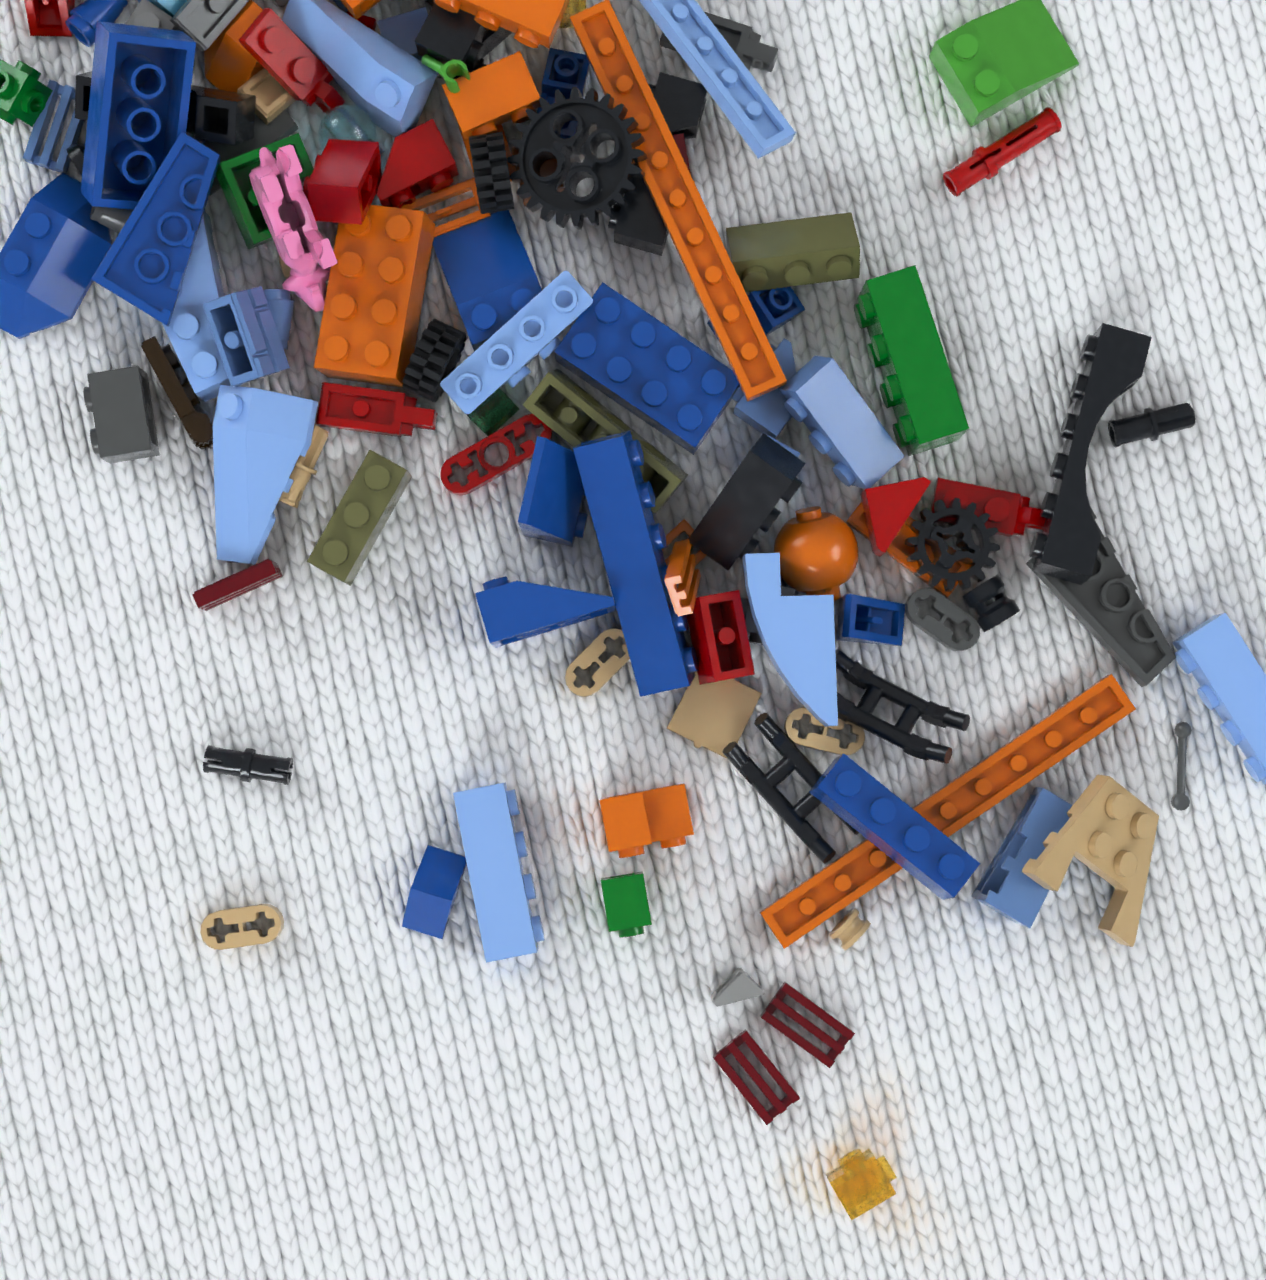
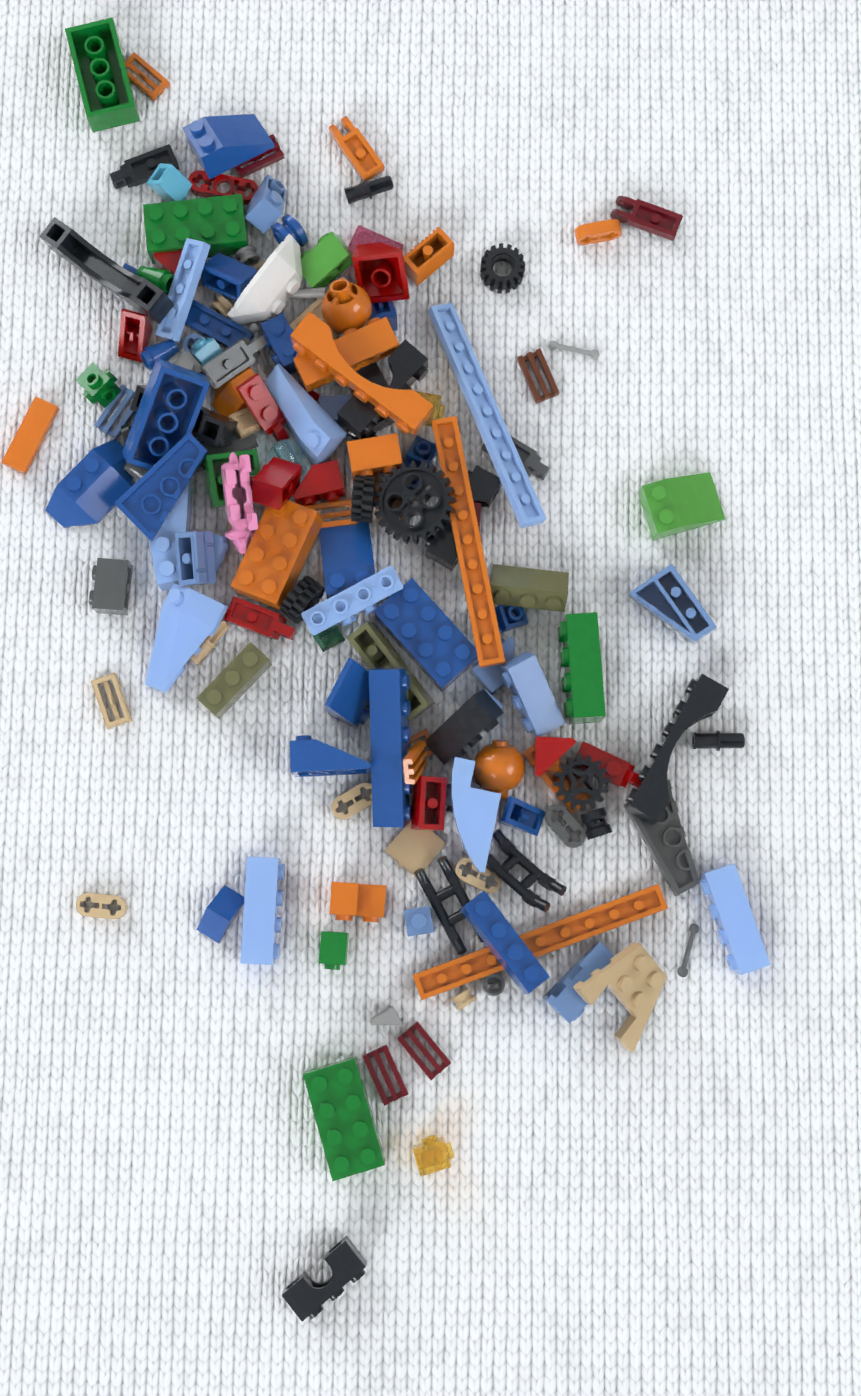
camera: 15 degrees right, 5 degrees down
(181, 395) = (148, 583): dark brown hinge -> none
(190, 628) = (118, 720): none -> tan tile
(237, 584) = (152, 702): dark red tile -> none
(248, 765) = (130, 810): black pin -> none
(448, 71) = (352, 434): bright green hand -> none
(463, 460) = (304, 661): red beam -> none
(710, 1160) = (344, 1118): none -> green brick
(749, 826) = (418, 921): none -> medium blue brick
(888, 887) = (493, 979): none -> dark grey hinge
(988, 160) = (656, 563): red pin -> none
(1033, 222) = (675, 604): none -> medium blue wedge

